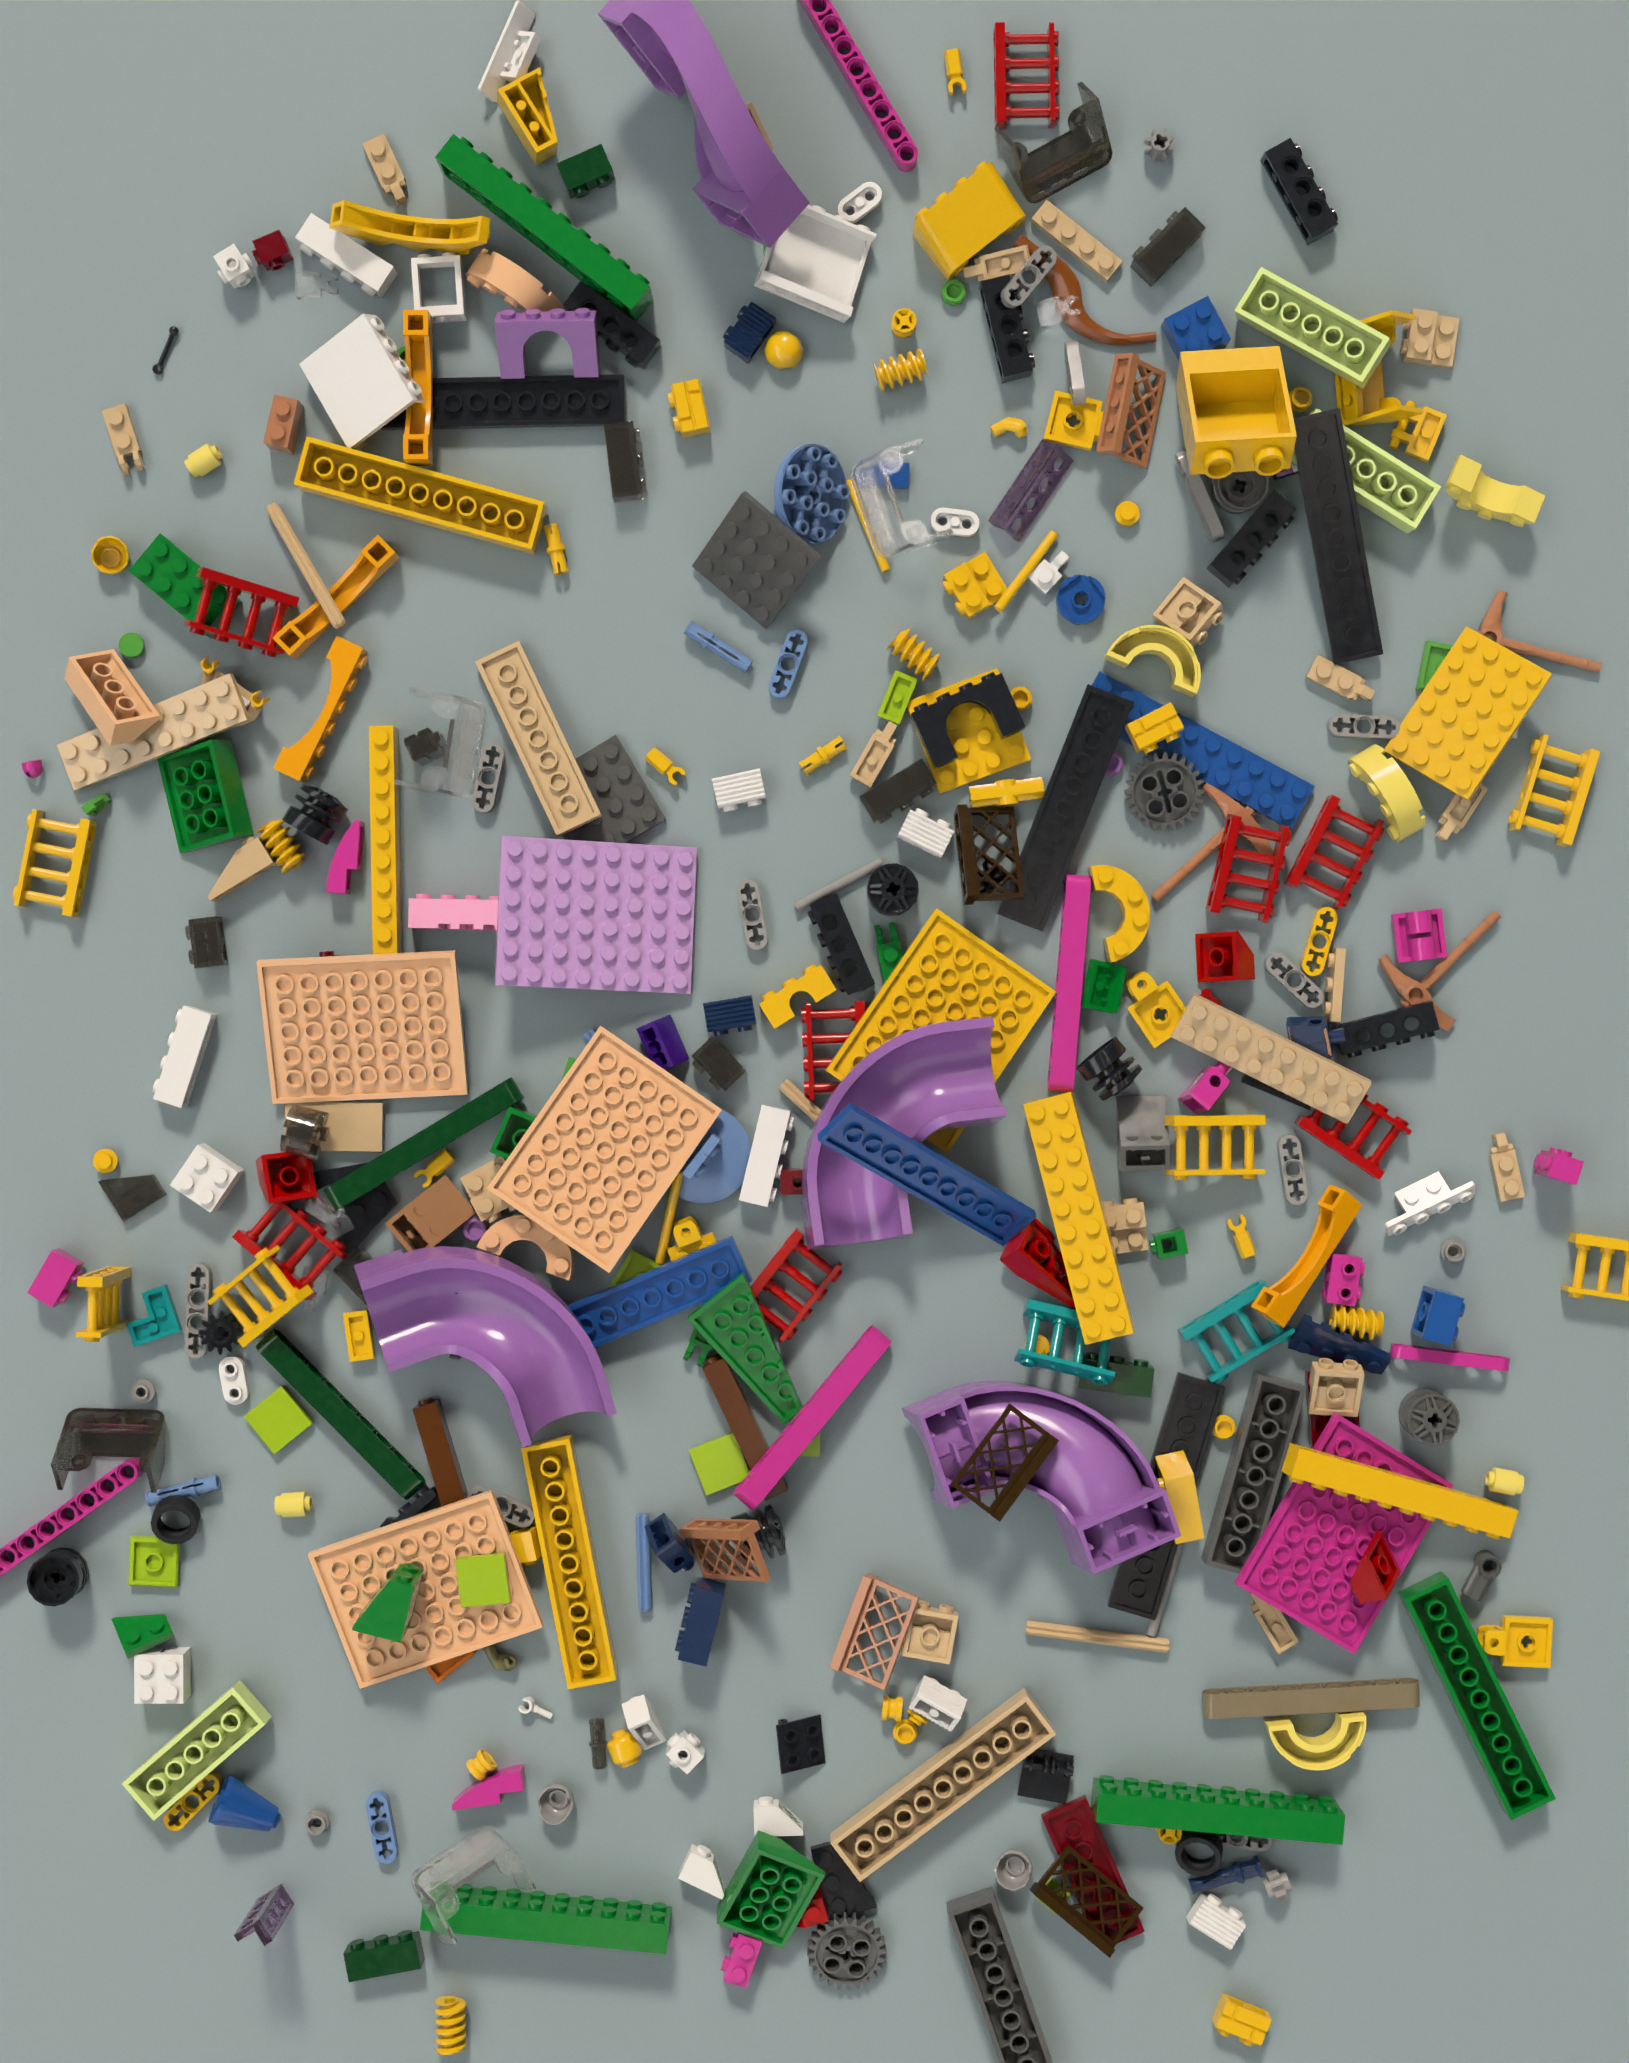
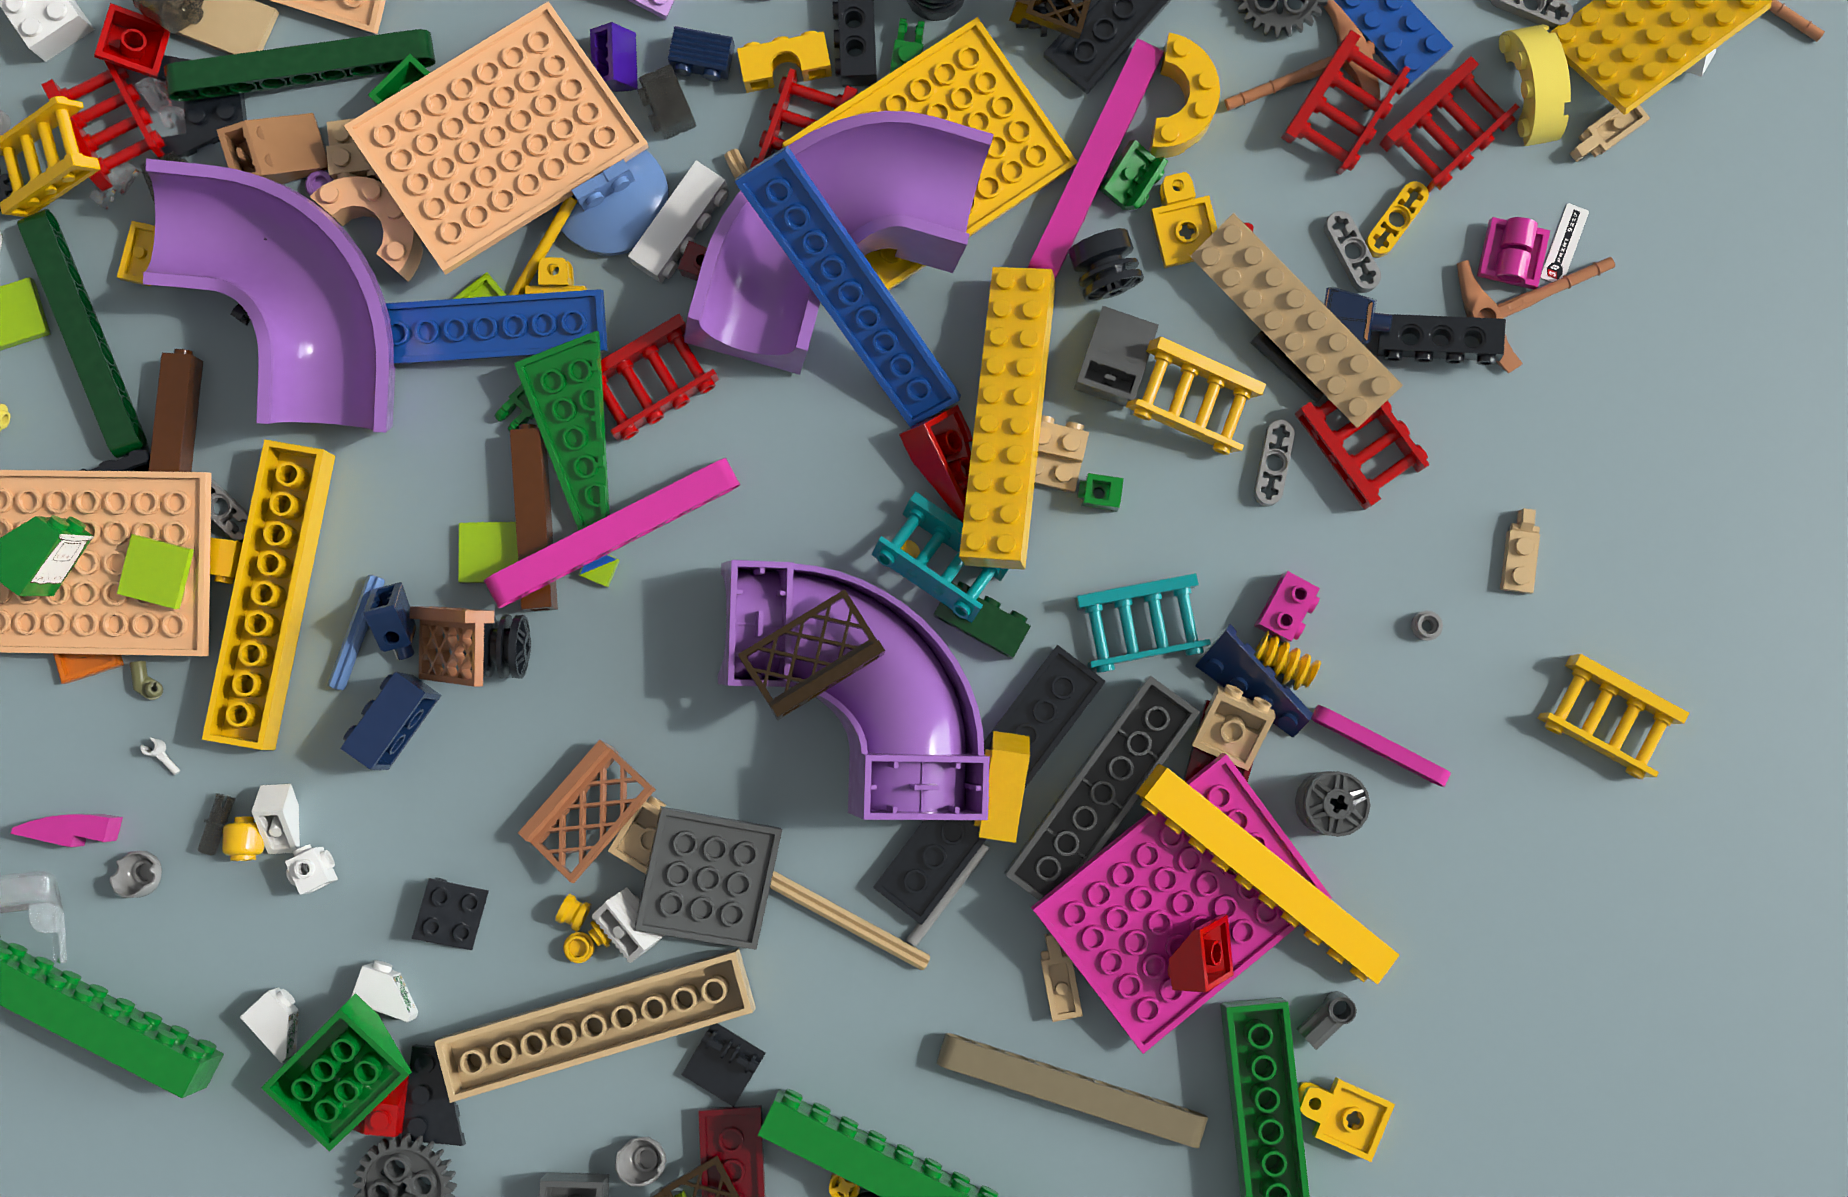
camera: 20 degrees right, 5 degrees down
(436, 1166) = (306, 100): yellow bar -> none
(481, 1764) = (70, 796): yellow wheel -> none
(741, 1959) = (276, 1147): dark pink brick -> none
(984, 1647) = (708, 878): none -> dark grey plate
(1200, 1093) = (1210, 328): dark pink torso -> none
(1223, 957) = (1282, 195): red slope -> none
(1224, 1427) = (1086, 729): yellow plate -> none
(1242, 1238) = (1187, 518): yellow bar -> none
(1320, 1751) = (1062, 1158): light yellow brick -> none
(1334, 984) = (1398, 269): tan plate -> none
(1335, 1215) = (1309, 525): light orange arch -> none
(1426, 1199) = (1417, 554): white bracket -> none
(1438, 1315) = (1385, 687): blue brick -> none
(1455, 909) = (1564, 243): none -> white sticker
(1504, 1481) = (1394, 916): light yellow brick -> none
(1558, 1165) = (1586, 567): dark pink brick -> none
(1577, 785) = (1736, 174): yellow fence -> none

